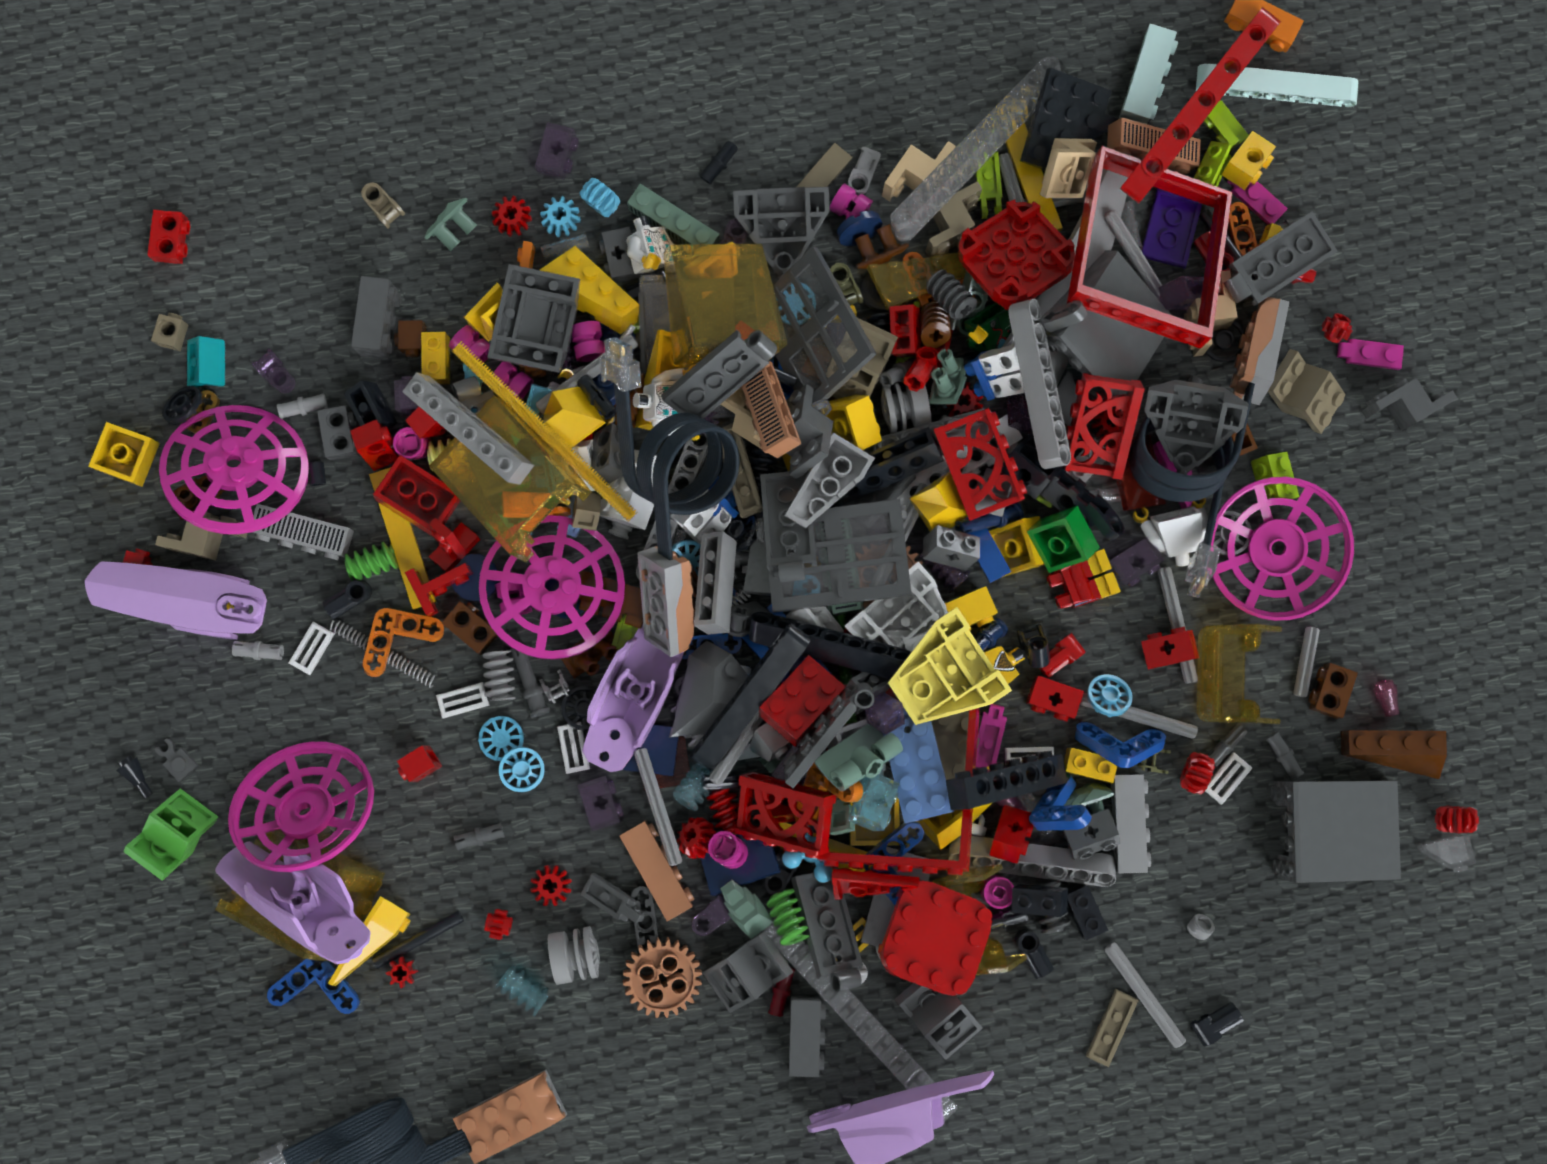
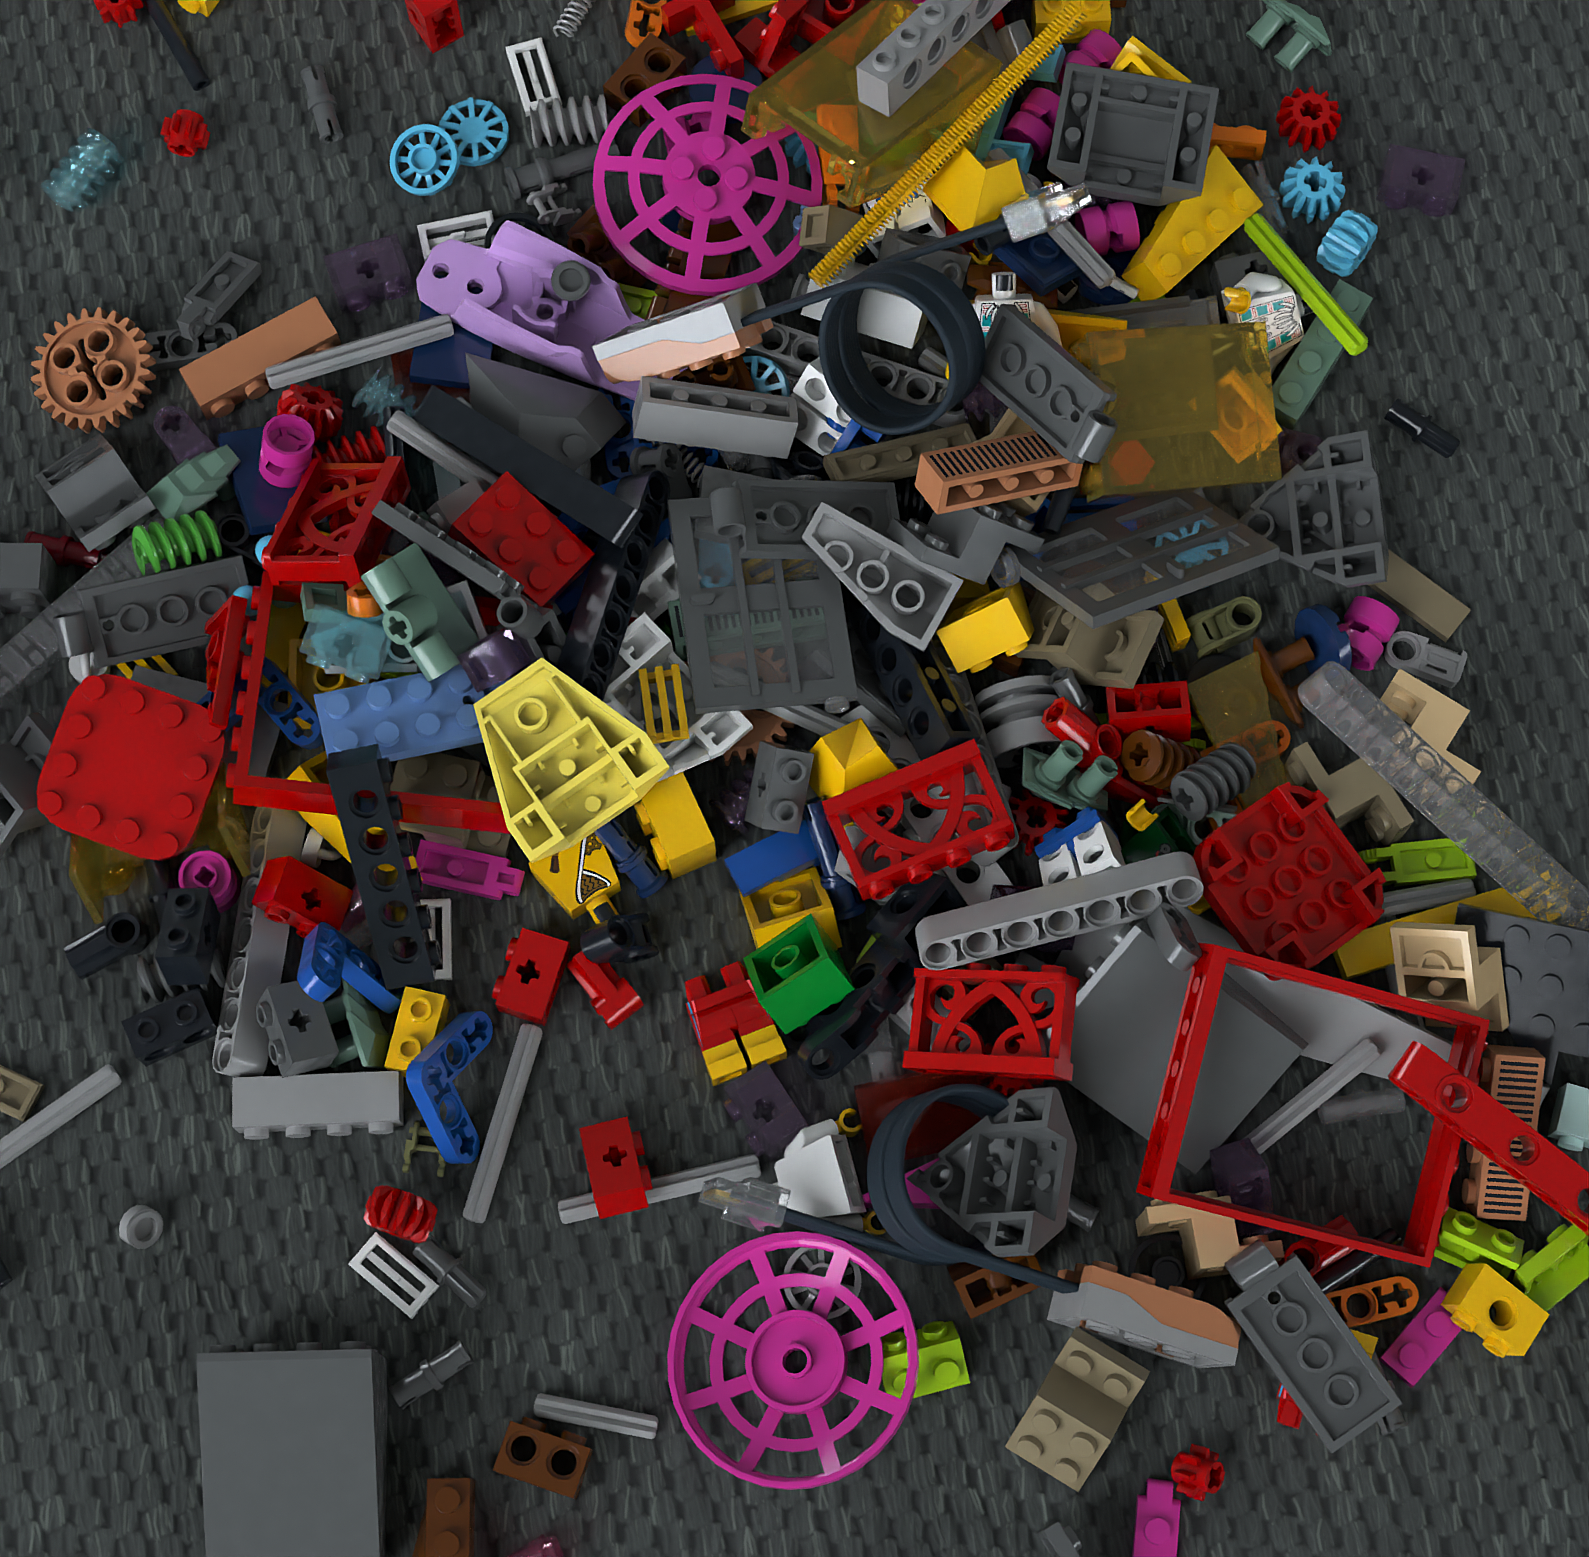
camera: 90 degrees right, 10 degrees down
(547, 893) = (227, 205): red gear -> none
(573, 955) = (131, 234): light grey wheel -> none
(627, 669) = (570, 280): none -> dark grey tile
(633, 222) = (1306, 284): none -> lime axle
(883, 616) = (660, 677): none -> yellow tile
(1109, 695) = (536, 1068): medium azure wheel -> none
(1171, 229) = (1358, 1177): dark purple tile -> none
(1223, 673) = (569, 1269): clear yellow windscreen -> none

